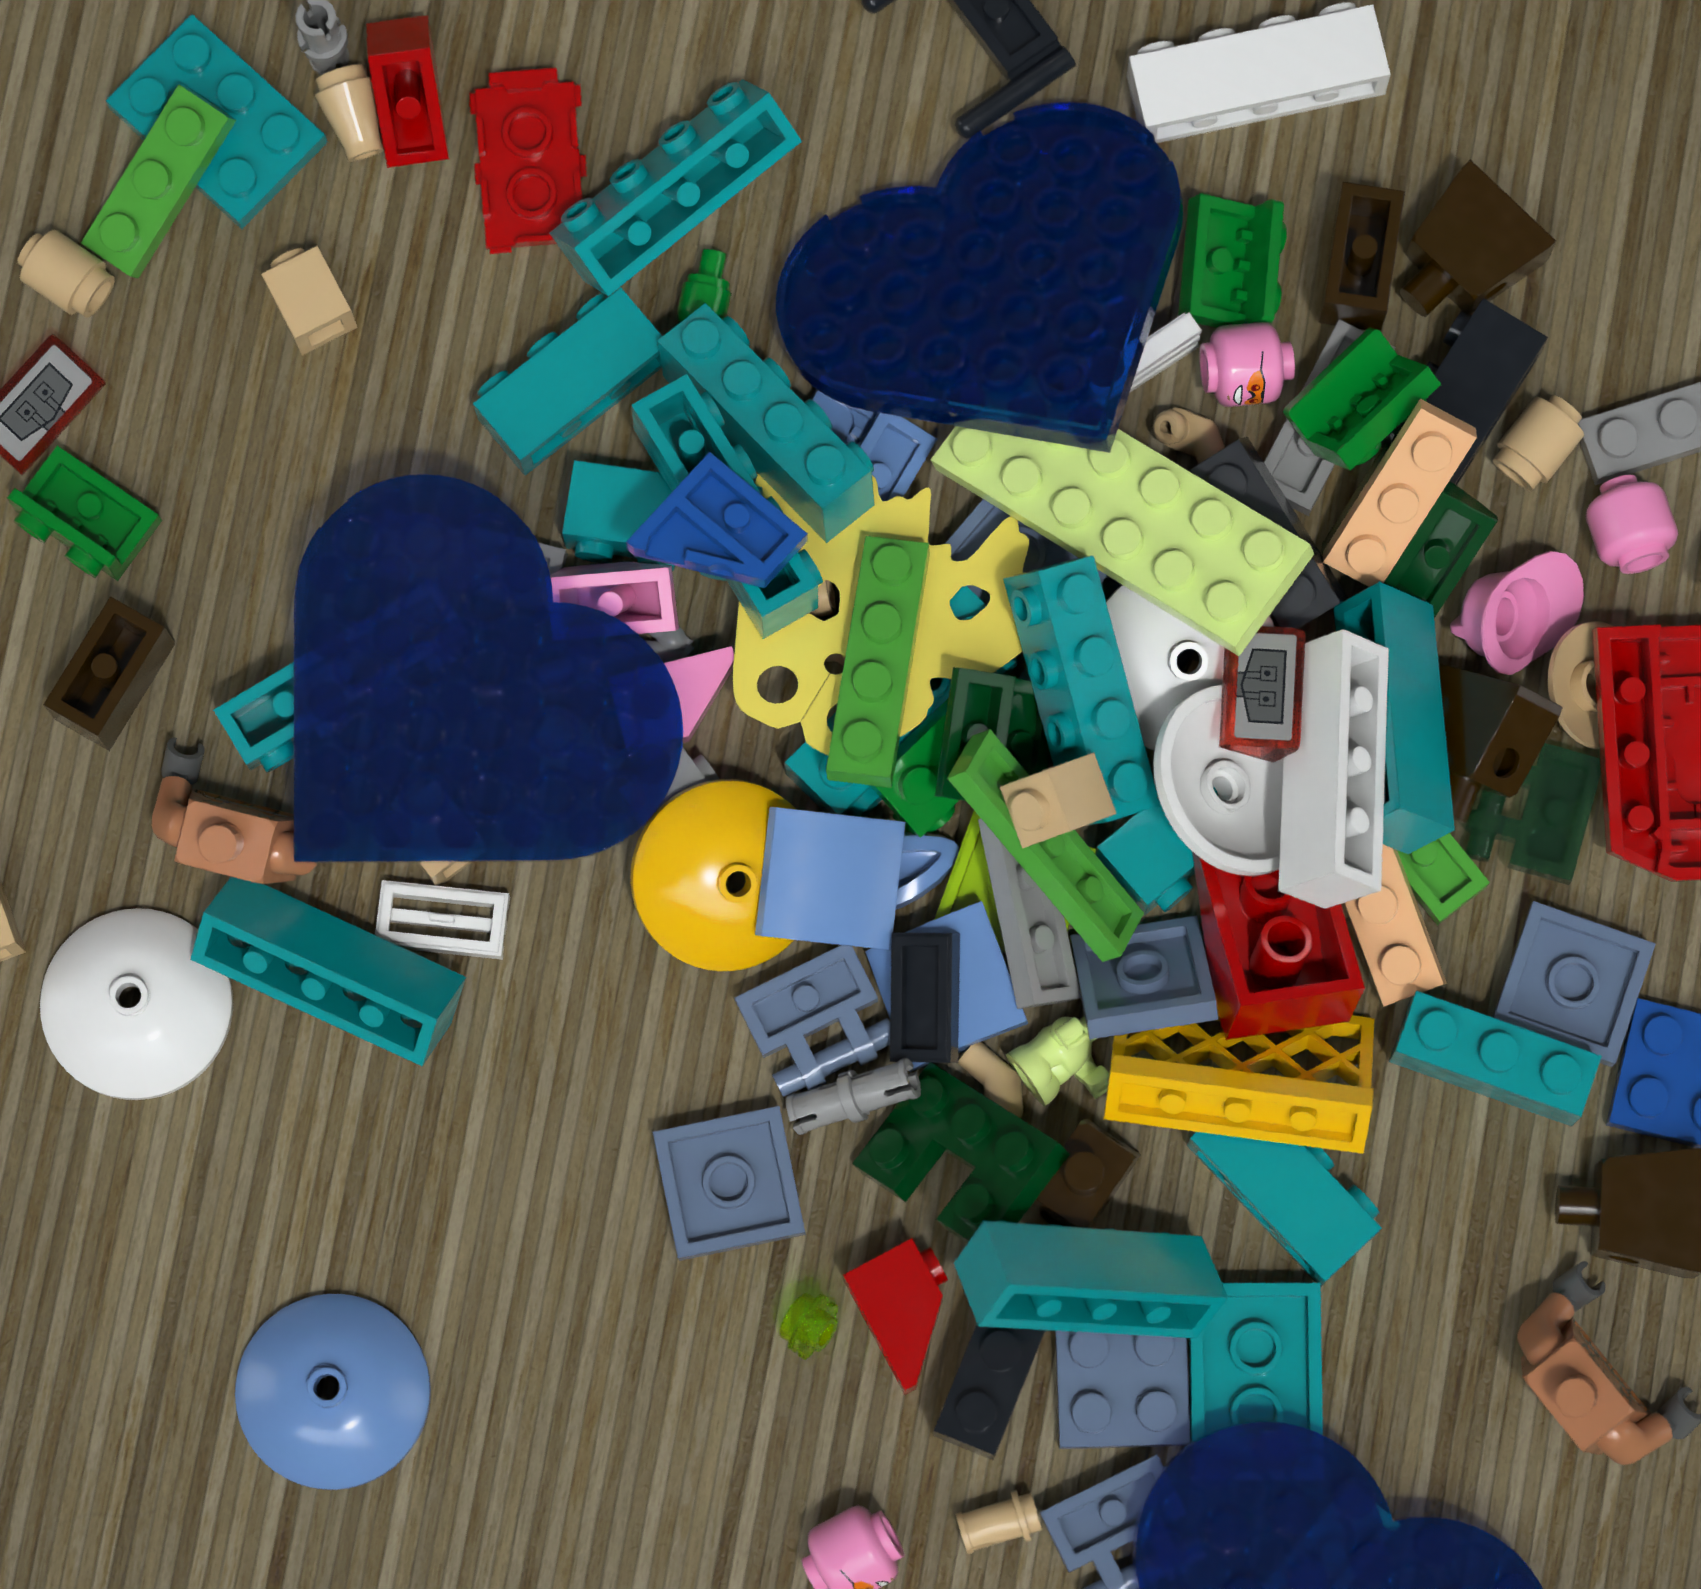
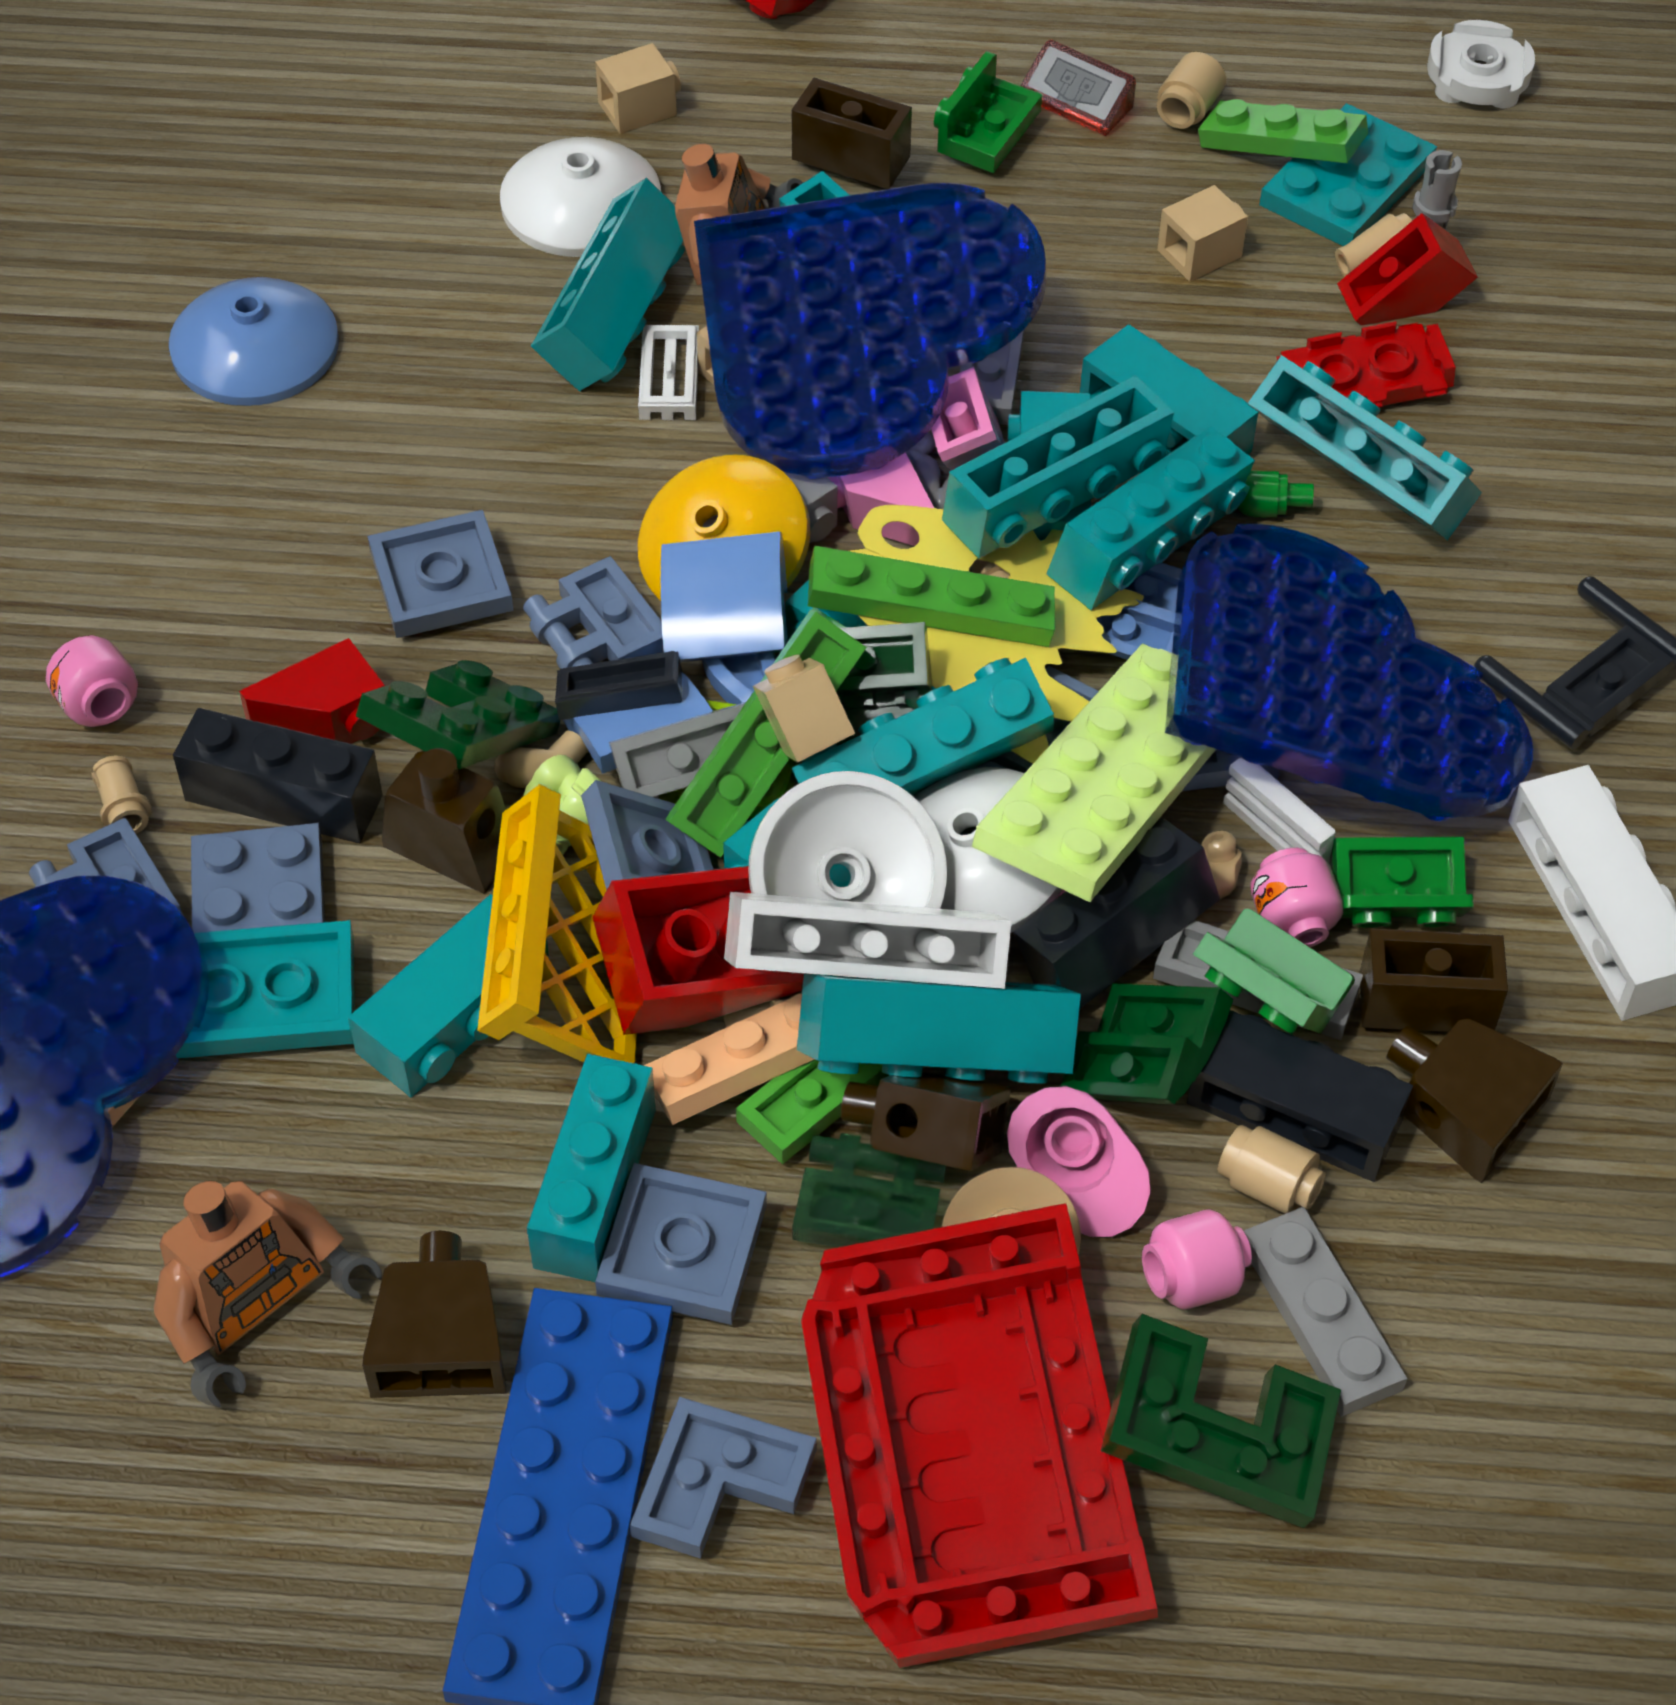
camera: 80 degrees right, 25 degrees down
(719, 528) = (1027, 423): blue wing -> none
(809, 1324) = (306, 633): clear neon green plate -> none
(853, 1096) = (523, 647): light grey pin -> none
(1089, 1280) = (333, 788): teal brick -> none
(1264, 695) = (939, 876): slope -> none
(1399, 494) = (1205, 1009): light nougat plate -> none

